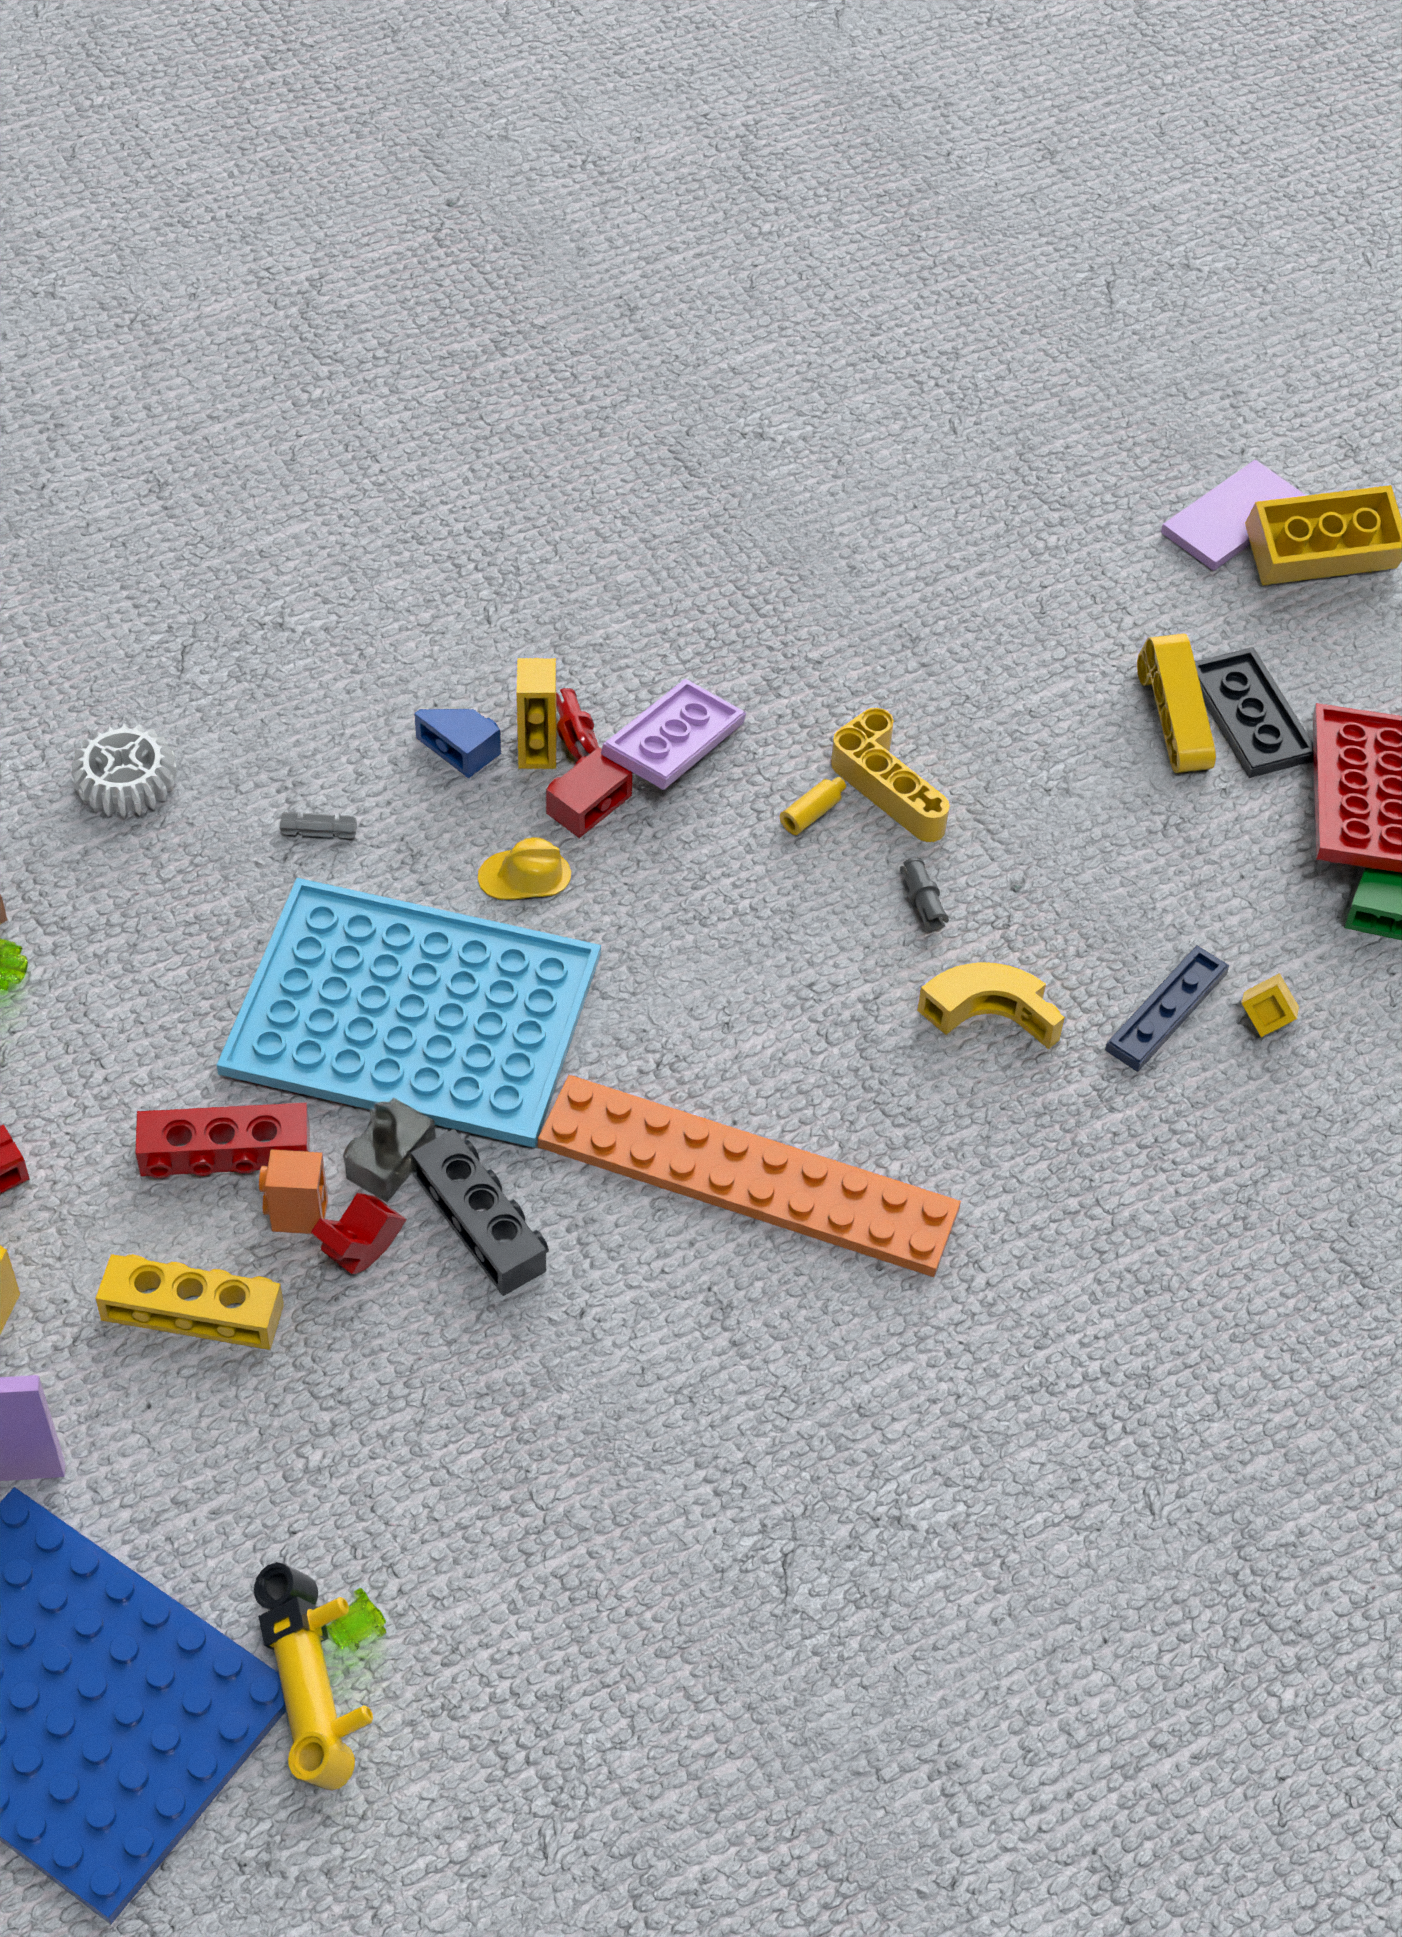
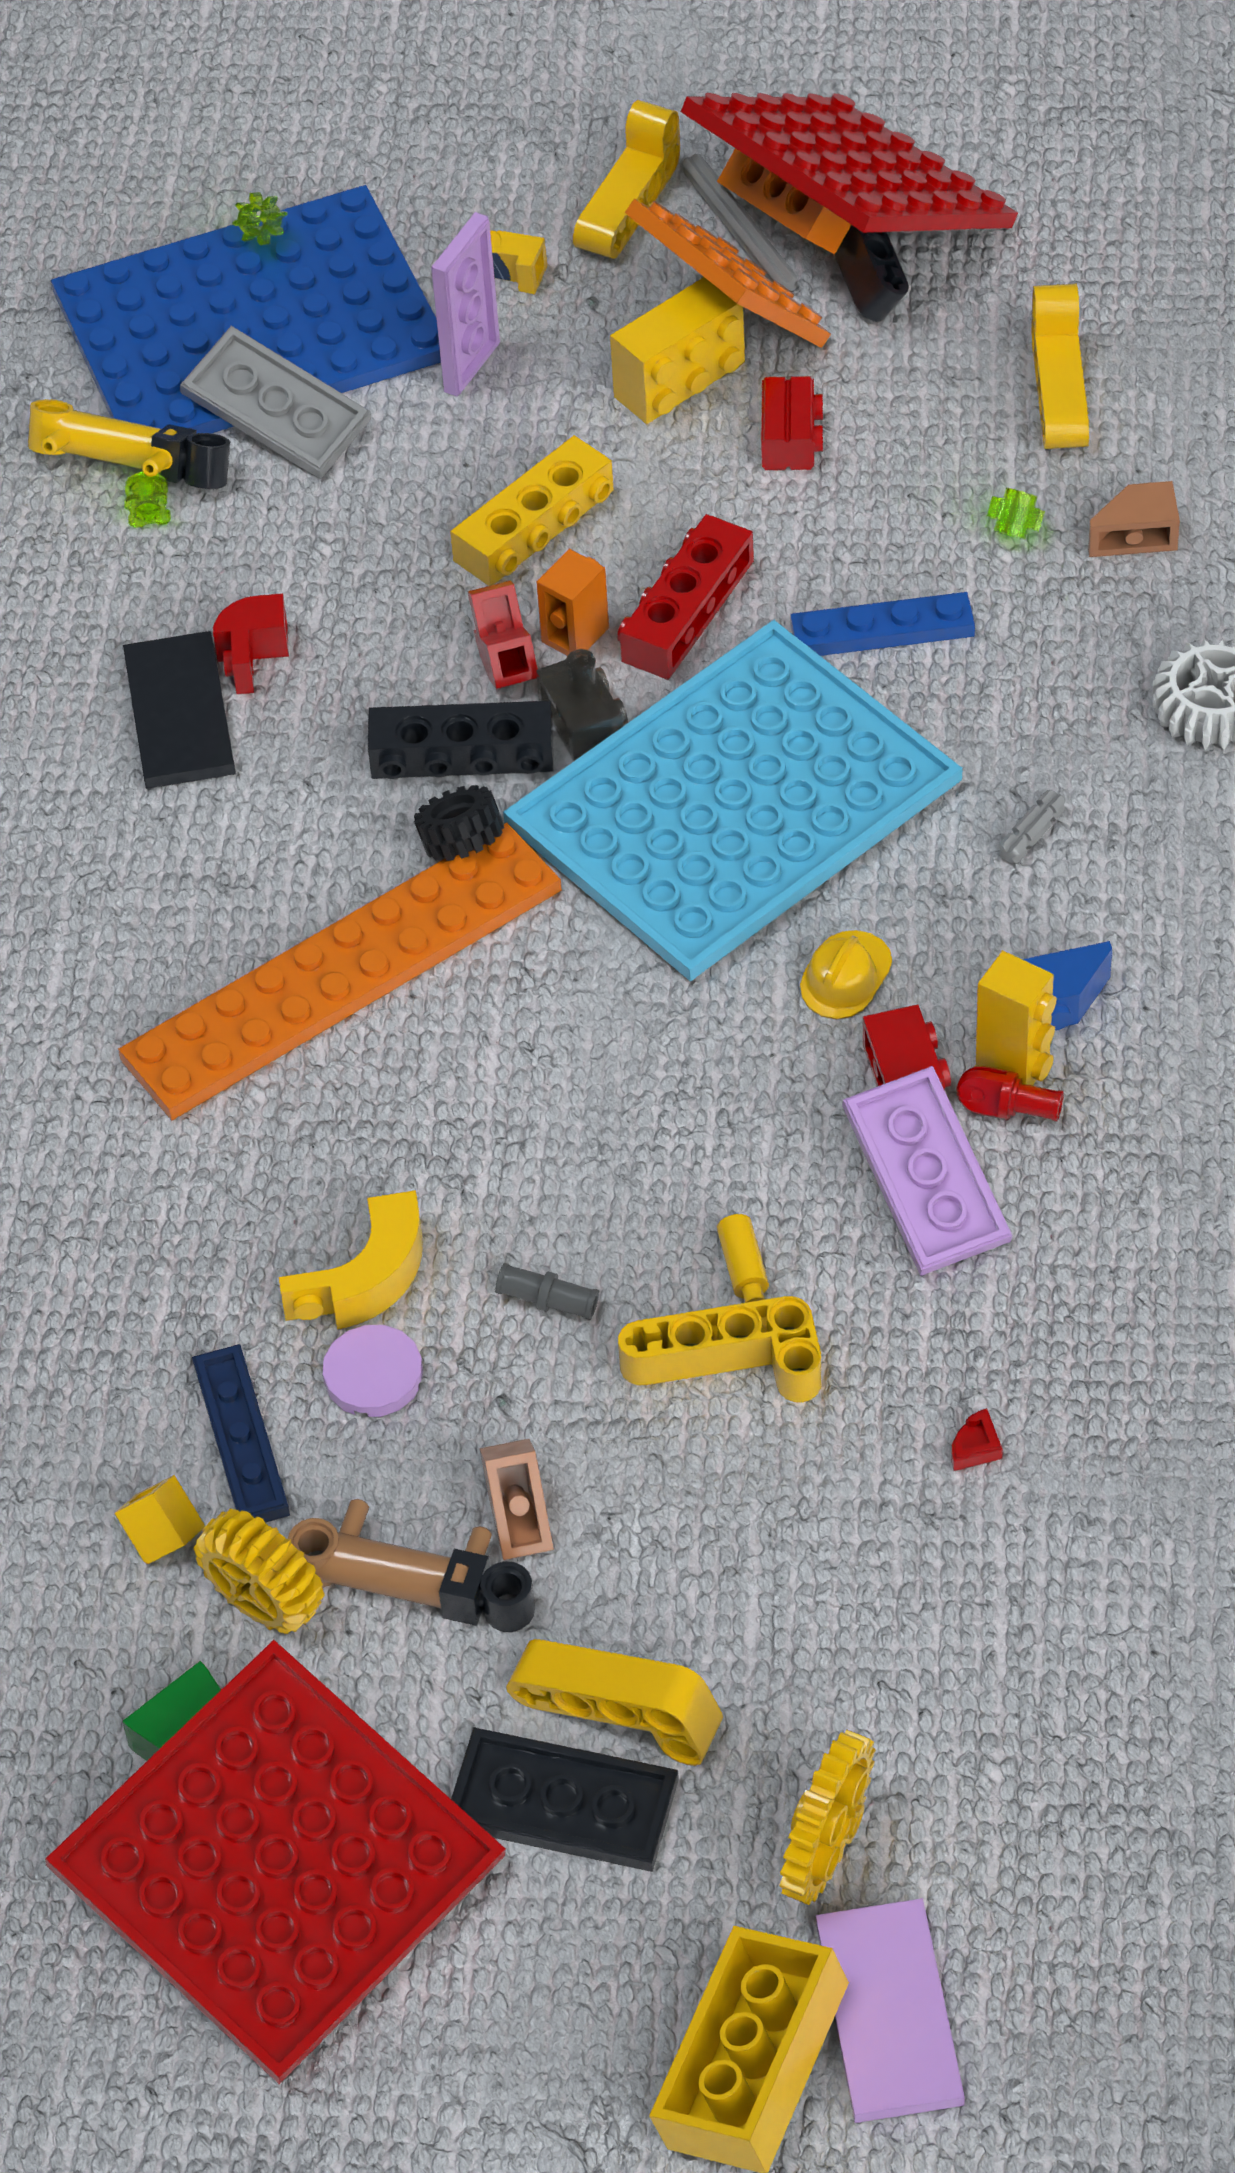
camera: 130 degrees right, 0 degrees up
(166, 1008) = (885, 624): none -> blue plate
(176, 1582) = (275, 402): none -> light grey tile
(466, 1438) = (249, 631): none -> red brick
(549, 1140) = (459, 822): none -> black tyre
(573, 1450) = (178, 709): none -> black tile
(847, 637) = (976, 1442): none -> red tile
(1060, 959) = (372, 1370): none -> lavender tile
(1084, 827) = (516, 1498): none -> nougat slope
(1171, 821) = (456, 1584): none -> medium nougat piece
(1203, 539) = (827, 1817): none -> yellow gear
(1268, 908) = (259, 1571): none -> yellow gear

